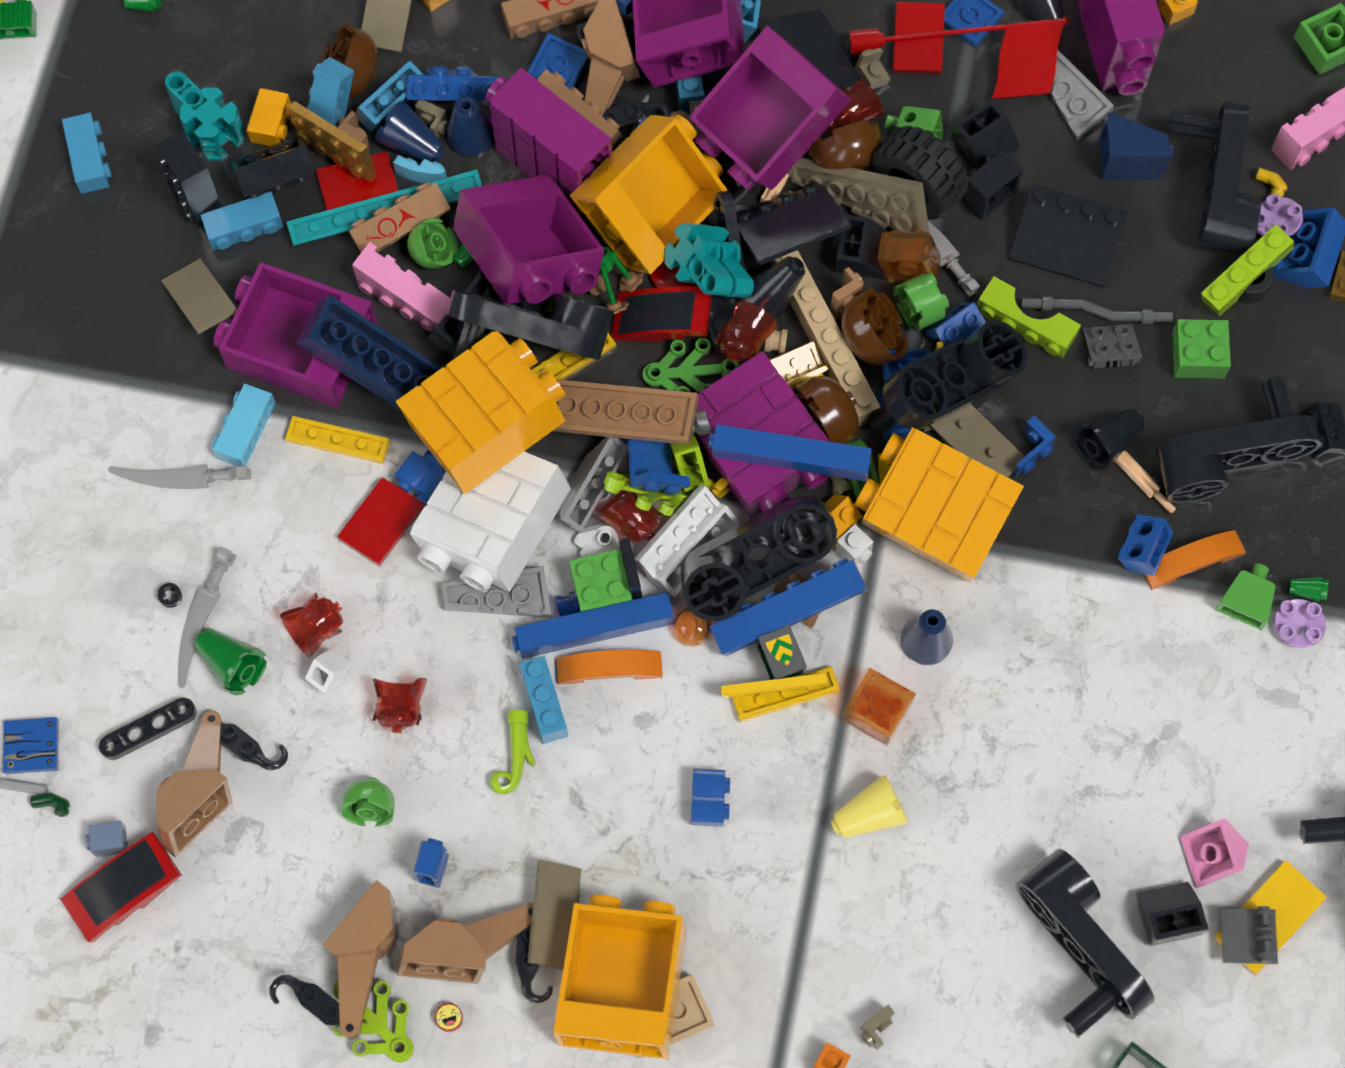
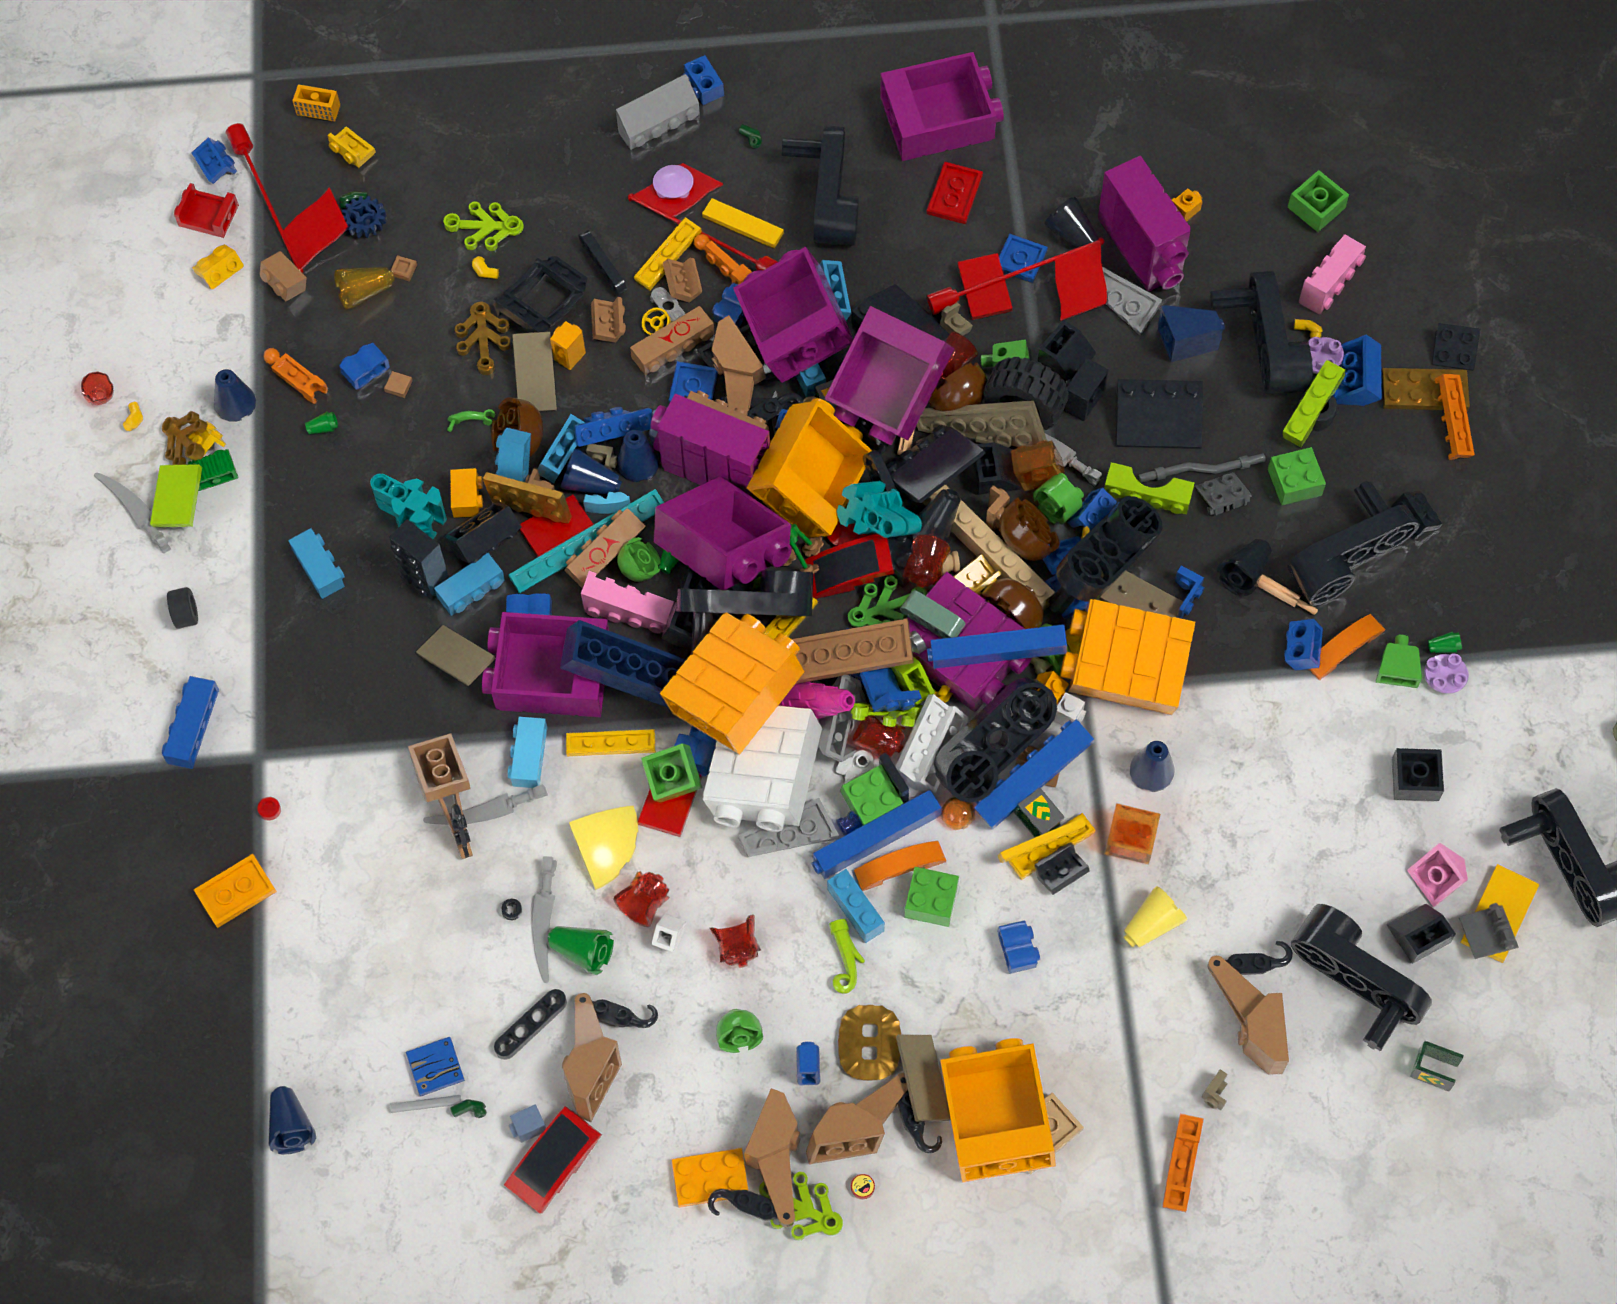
camera: 15 degrees left, 5 degrees down
(138, 424) = (441, 775): none -> medium nougat slope
(284, 952) = (704, 1173): none -> light orange plate
(292, 32) = (466, 415): none -> bright green piece
(295, 549) = (606, 842): none -> light yellow brick
(298, 262) = (529, 604): none -> blue brick
(387, 493) = (671, 773): none -> bright green brick
(491, 850) = (852, 1041): none -> pearl gold piece
(572, 456) = (819, 698): none -> dark pink cone
(631, 713) = (931, 896): none -> bright green brick
(729, 397) = (932, 615): none -> sand green beam
(786, 722) = (1060, 868): none -> black bracket
(953, 956) = (1260, 1016): none -> medium nougat slope
(1226, 731) = (1417, 774): none -> black brick

